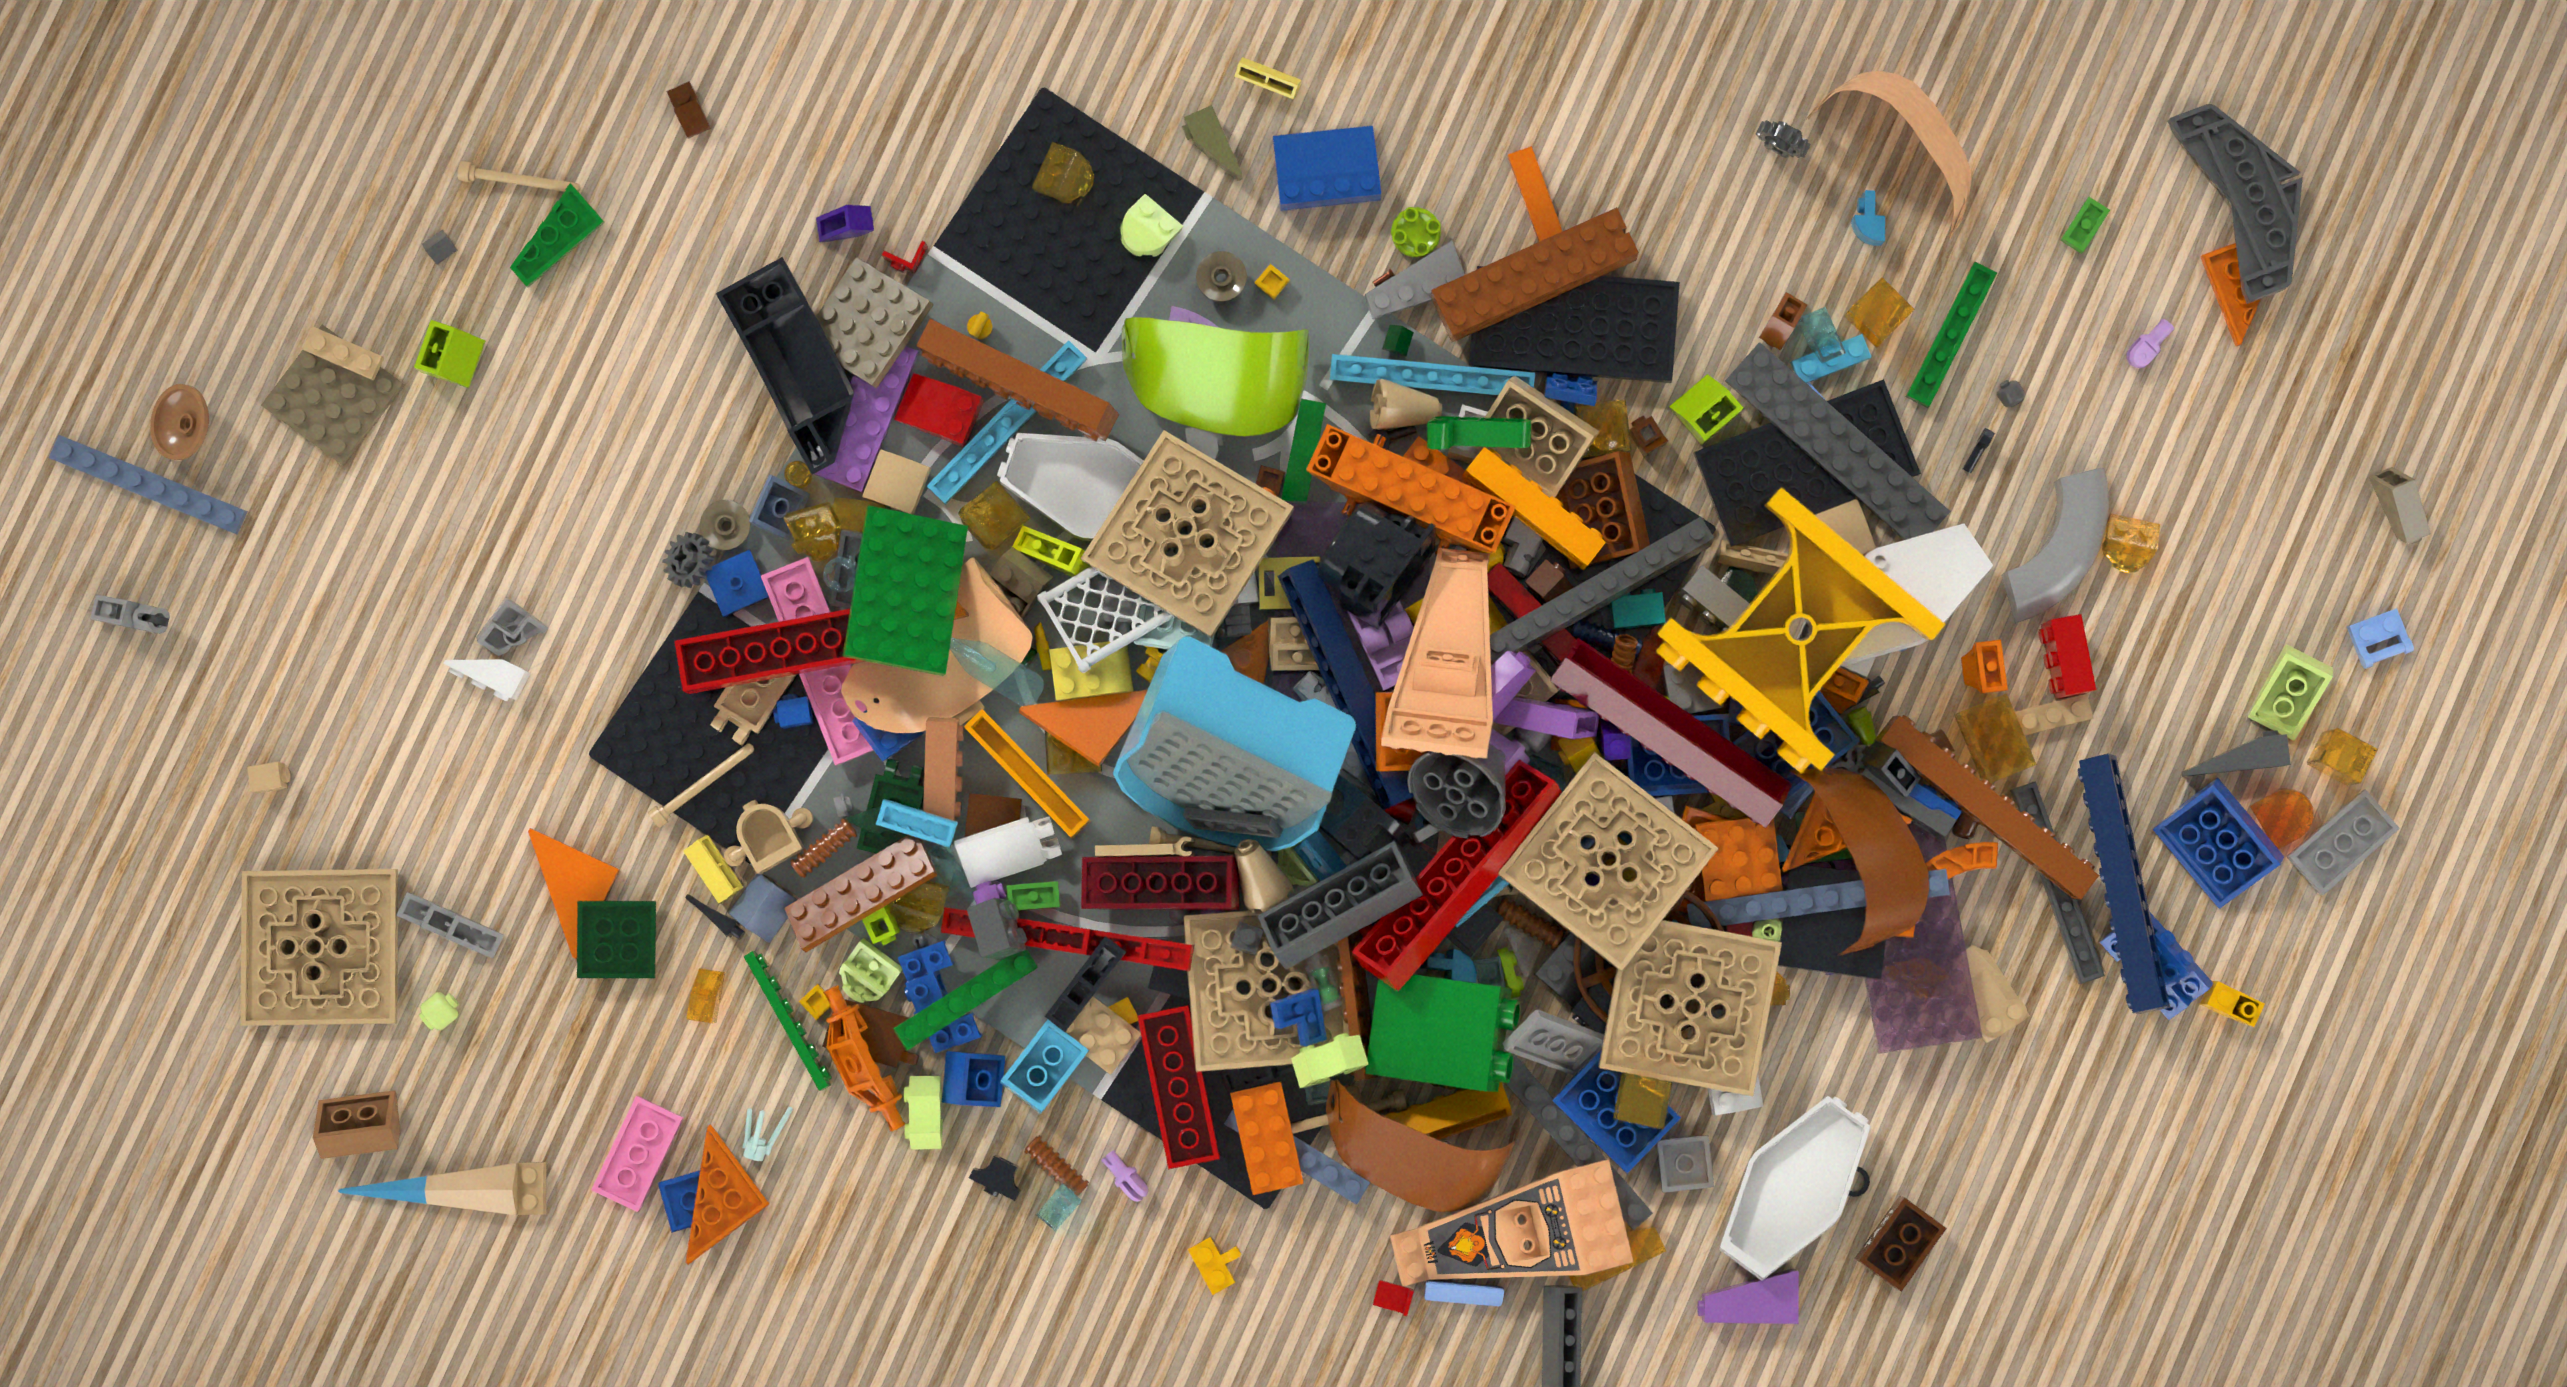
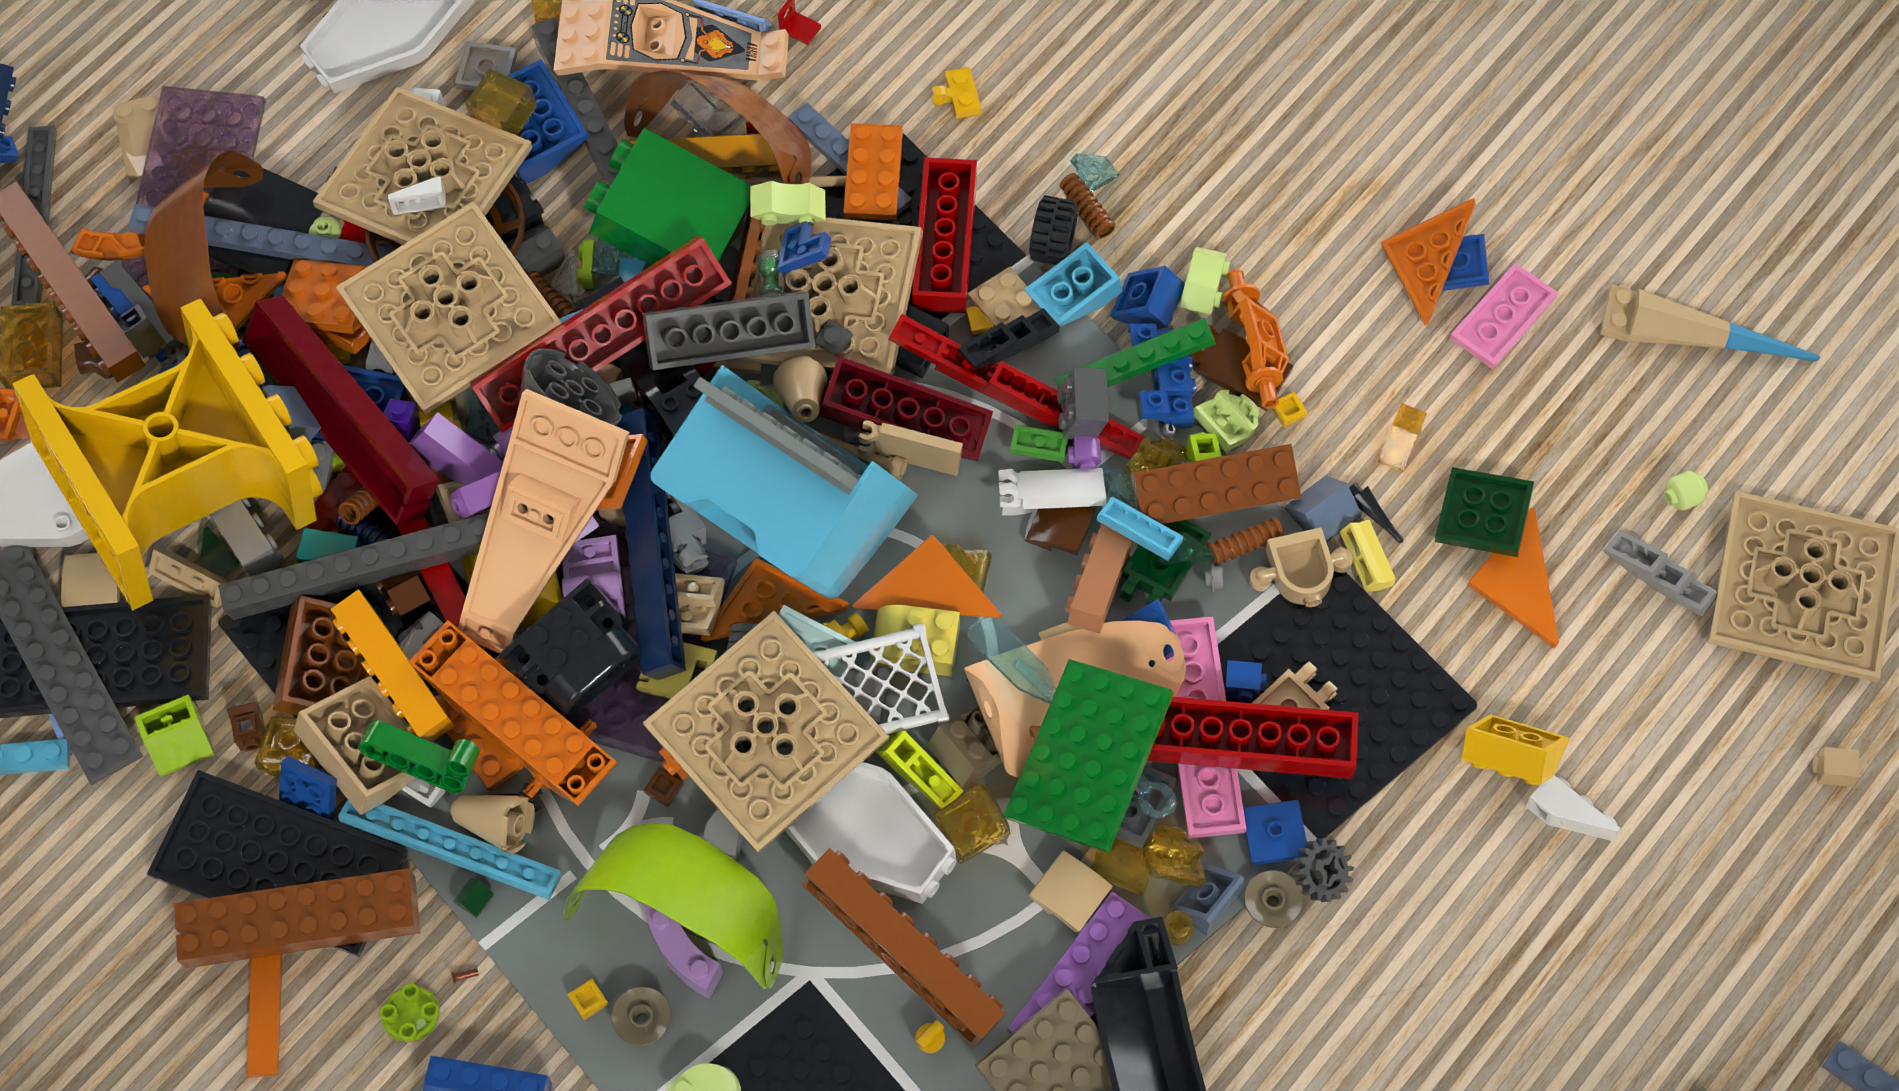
camera: 165 degrees left, 20 degrees down
(357, 1124) = (1790, 409): medium nougat slope -> none
(509, 627) = (1541, 856): light grey slope -> none
(546, 712) = (1513, 749): none -> yellow slope
(662, 813) = (1412, 619): tan piece -> none
(754, 1145) = (1381, 293): light aqua plant -> none
(794, 1029) = (1325, 404): green plate -> none
(939, 409) = (1001, 956): red slope -> none
(998, 1178) = (1148, 209): black brick -> none
(999, 430) = (937, 917): medium azure plate -> none
(1027, 773) = (1011, 554): light orange brick -> none
(1042, 647) = (959, 681): yellow piece -> none
(1077, 1119) = (1053, 230): none -> black tyre
(1126, 1177) = (1021, 180): lavender arm -> none
(1303, 446) = (615, 802): green slope -> none
(1415, 283) = (428, 955): light grey wing -> none
(1554, 1042) = (565, 174): light grey plate -> none
(1673, 969) = (419, 197): none -> white slope
(1712, 717) = (301, 417): none -> sand blue slope
(1783, 321) = (55, 806): dark orange slope -> none
(1821, 335) = (22, 778): clear light blue slope -> none

